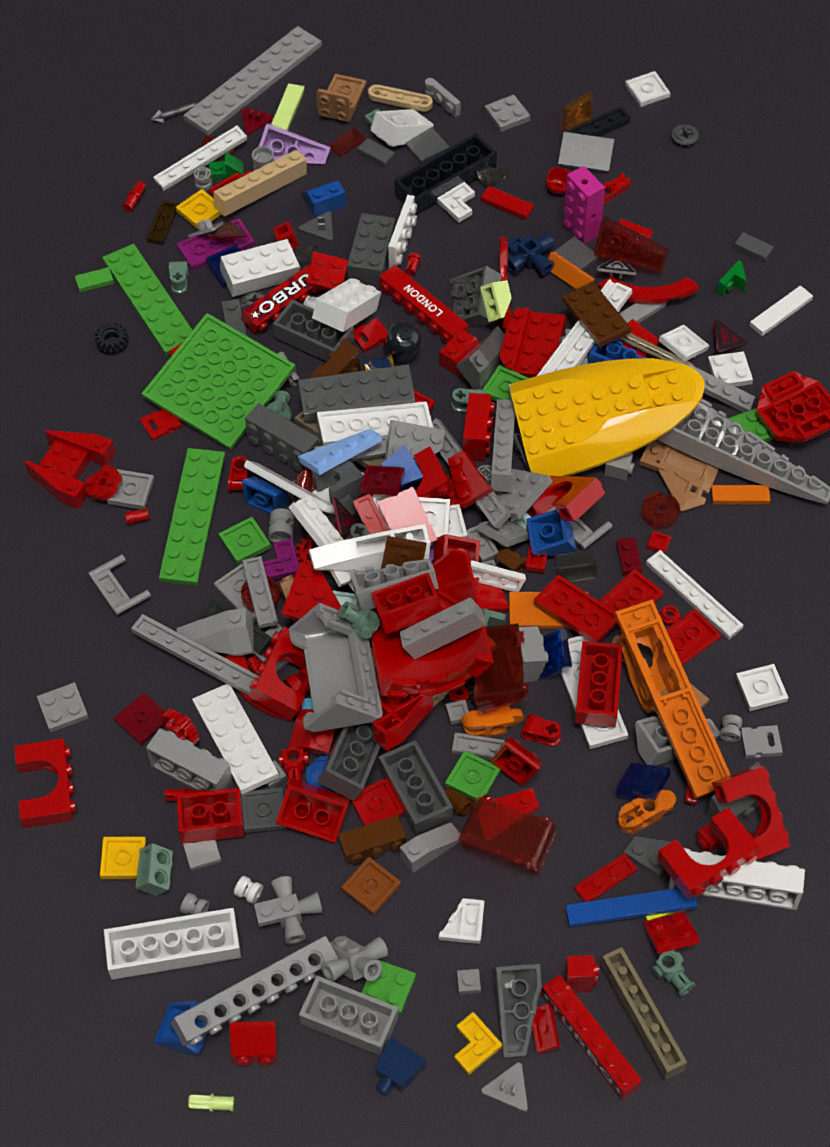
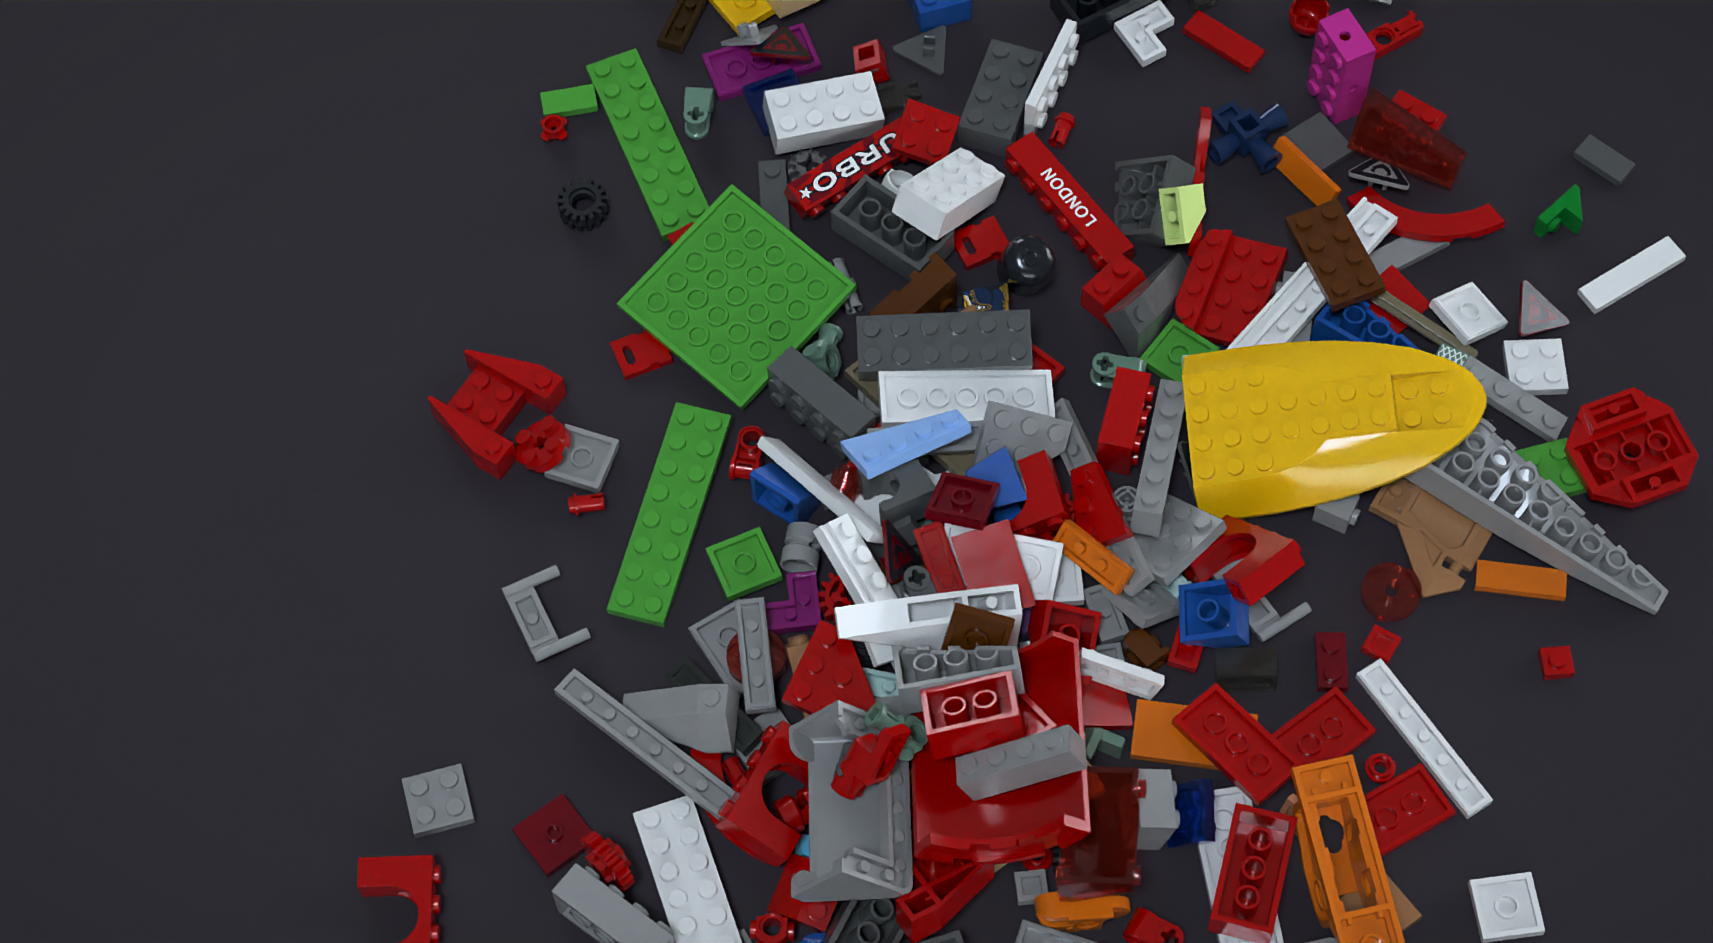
camera: 10 degrees right, 5 degrees up
(86, 296) = (550, 122): none -> red plate
(344, 638) = (868, 760): none -> red plate
(470, 507) = (1093, 557): none -> orange tile
(770, 540) = (1556, 662): none -> red plate

